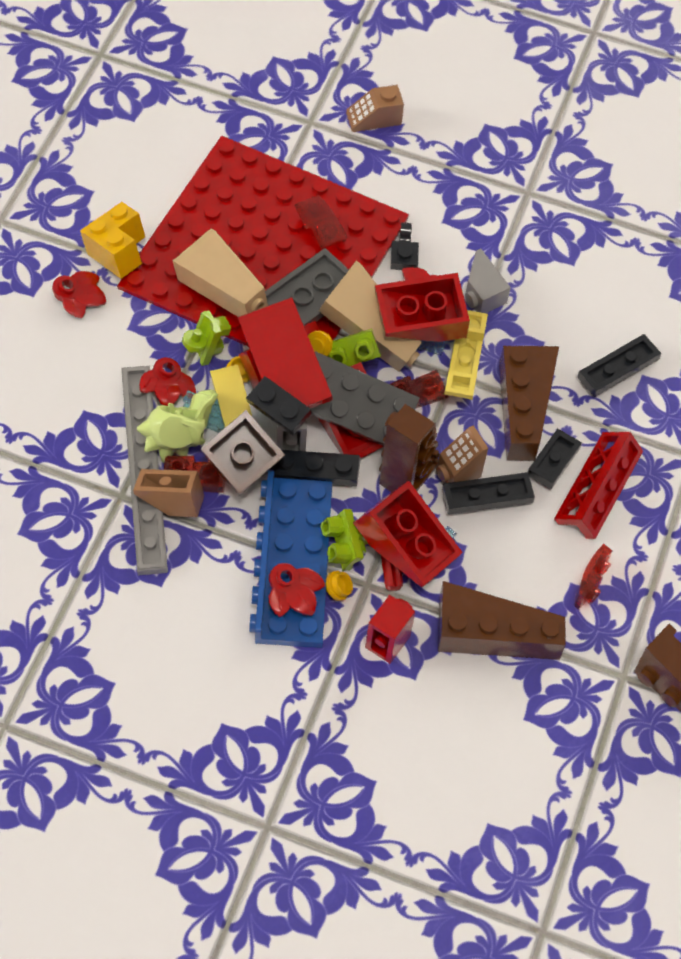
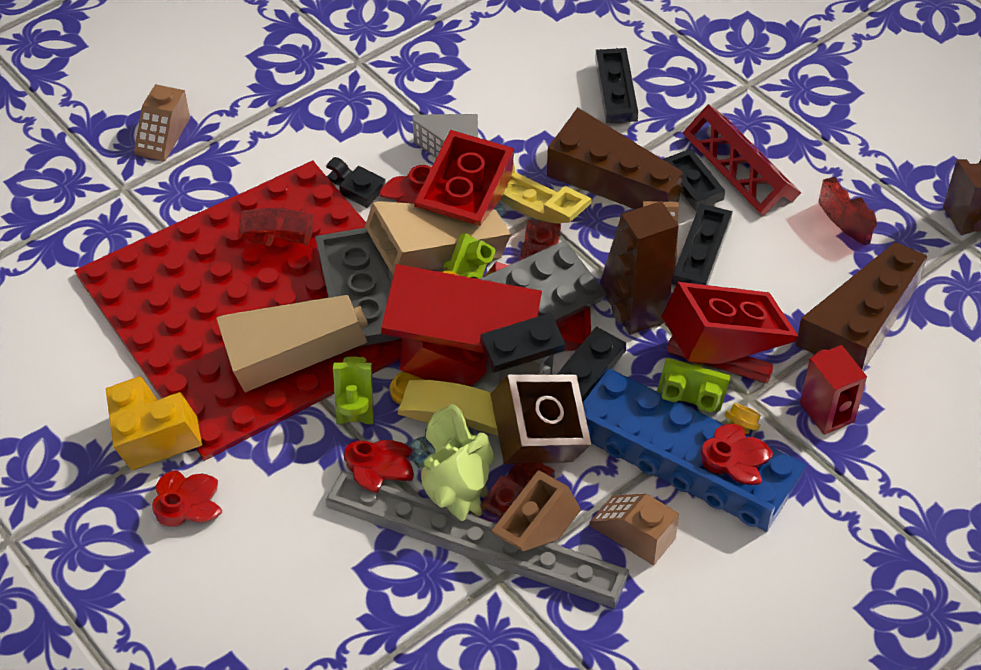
camera: 55 degrees left, 10 degrees down
(204, 558) = (638, 524): none -> medium nougat slope

